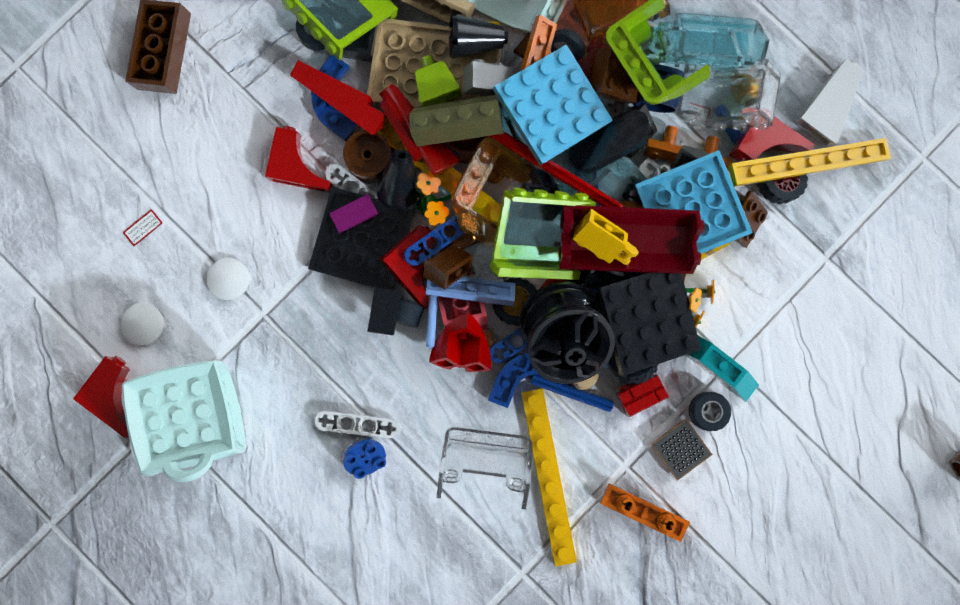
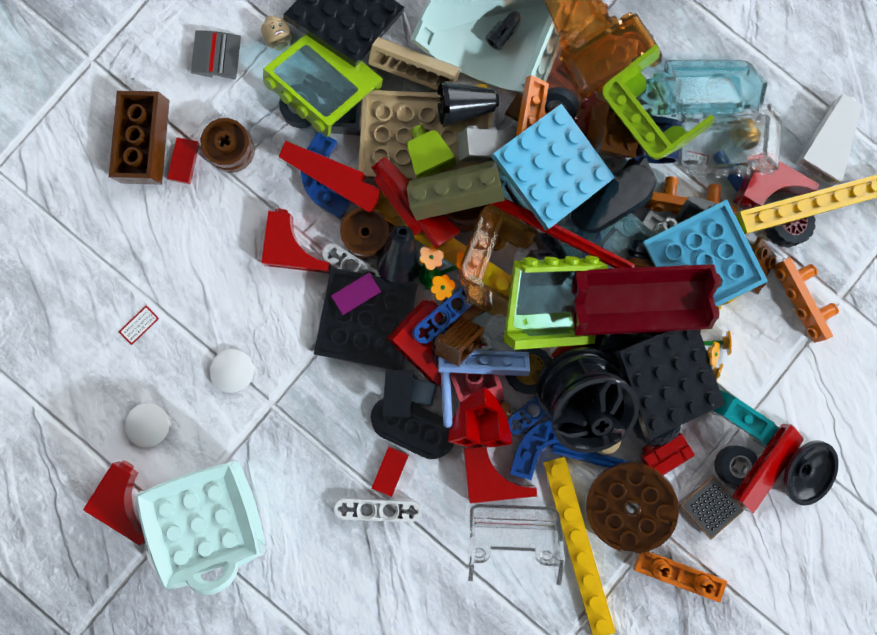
camera: 10 degrees left, 0 degrees up
(199, 73) = (183, 160): none -> red tile
(242, 60) = (227, 145): none -> reddish brown wheel
(364, 458) = (389, 544): blue plate -> none
(372, 388) = (390, 471): none -> red tile
(402, 352) = (420, 433): none -> black tile
(462, 404) = (486, 483): none -> red arch
(603, 419) = (637, 484): none -> reddish brown plate
(604, 238) = (619, 301): yellow brick -> none
(739, 415) = (768, 467): none -> red slope
(780, 423) = (810, 472): none -> black dish
(788, 256) = (806, 308): none -> orange plate

